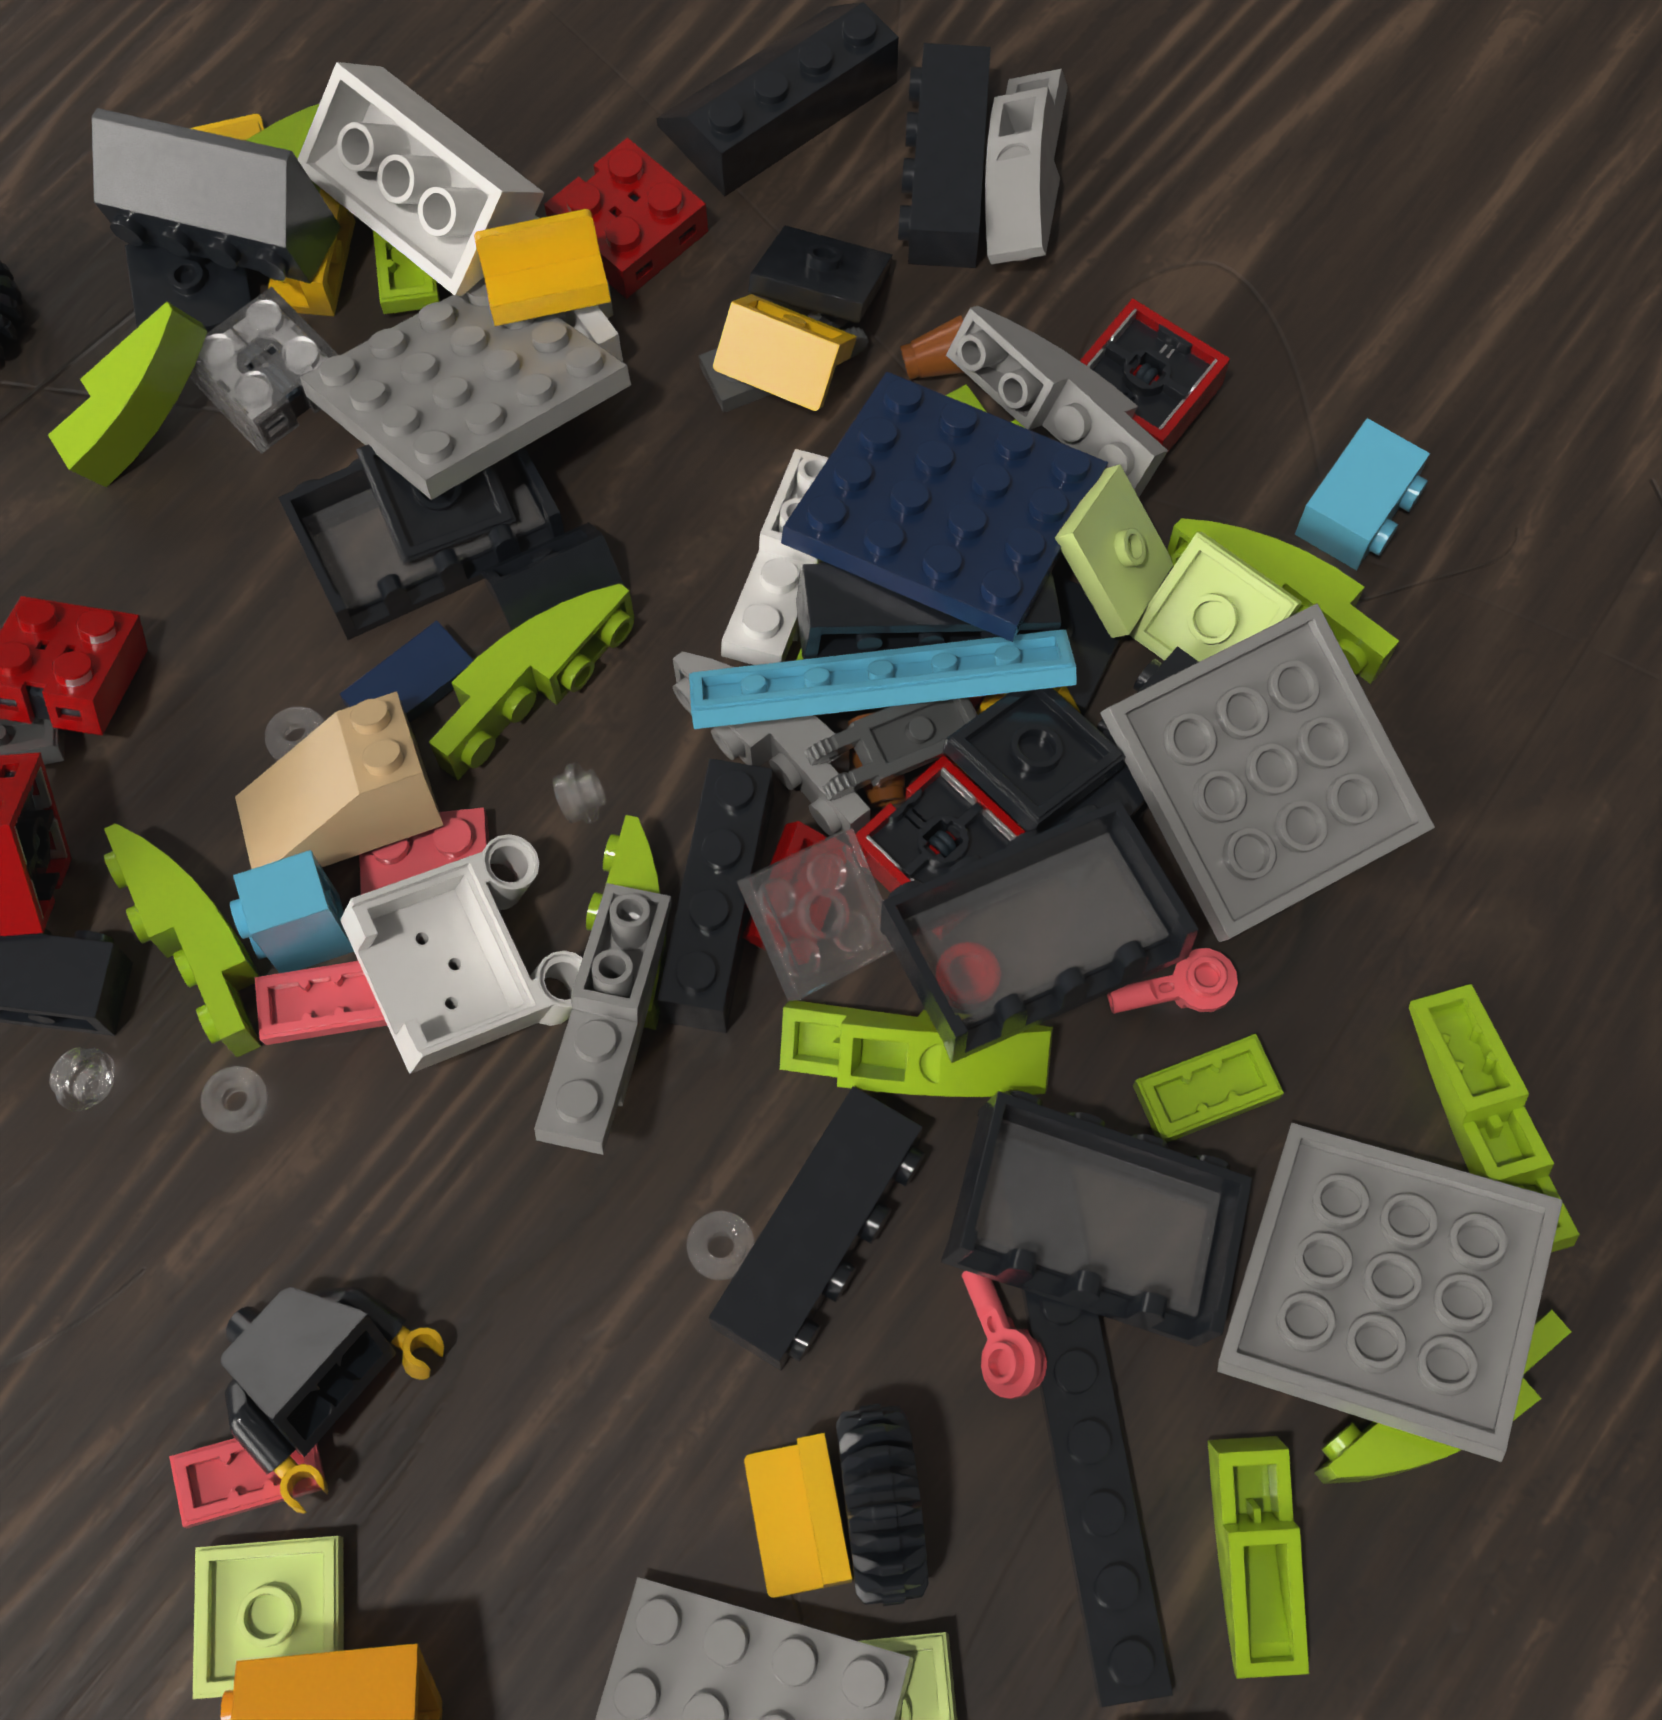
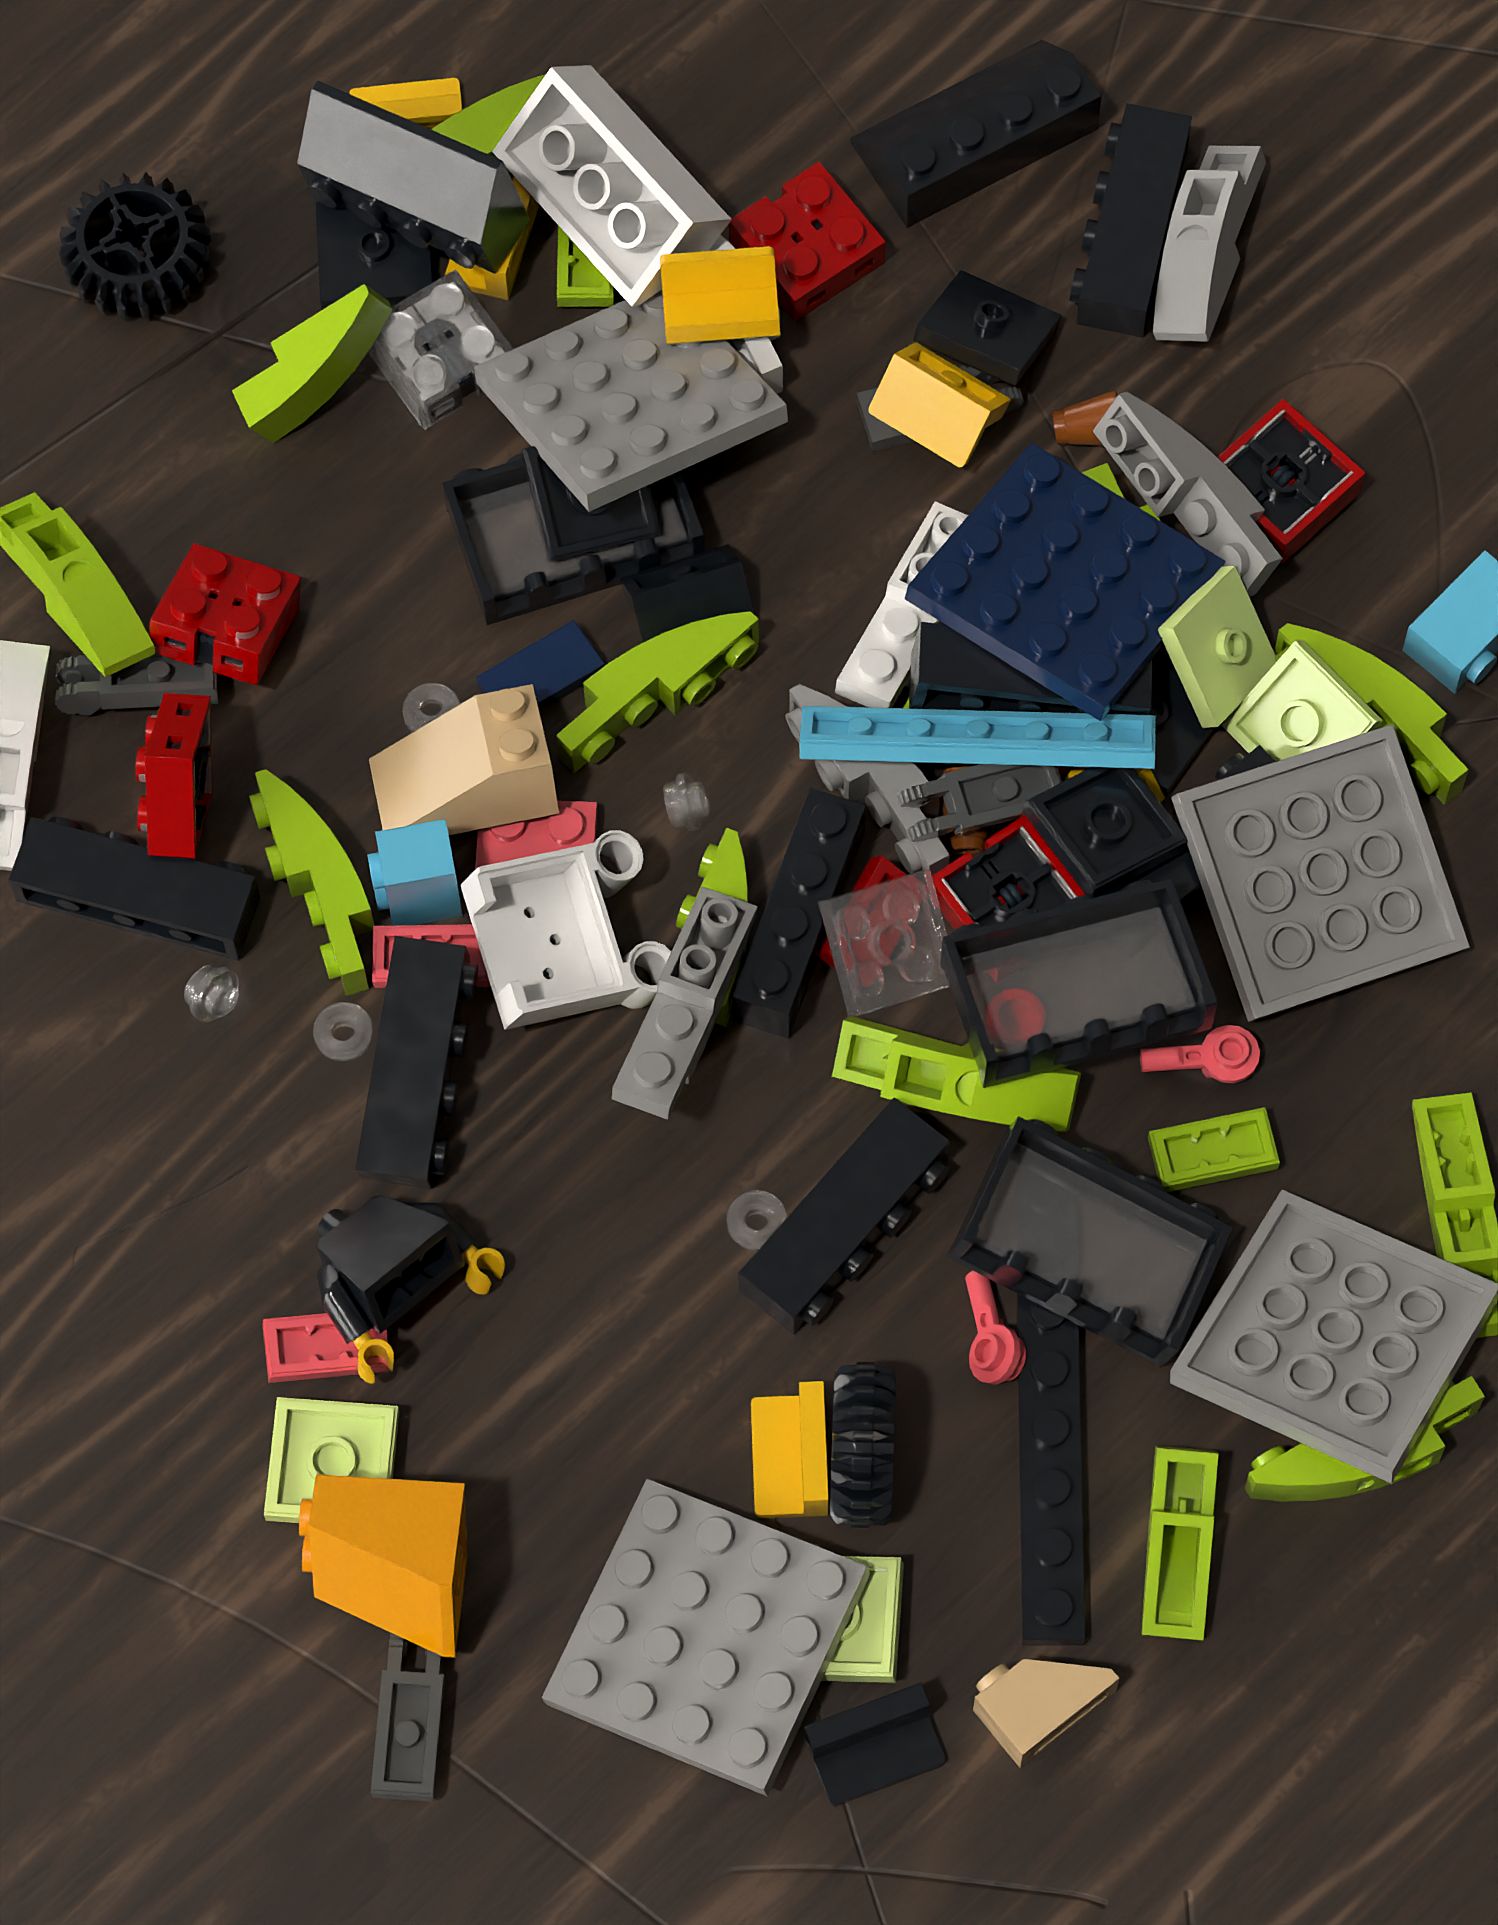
camera: 10 degrees right, 0 degrees up
(314, 1126) = (414, 1063): none -> black brick

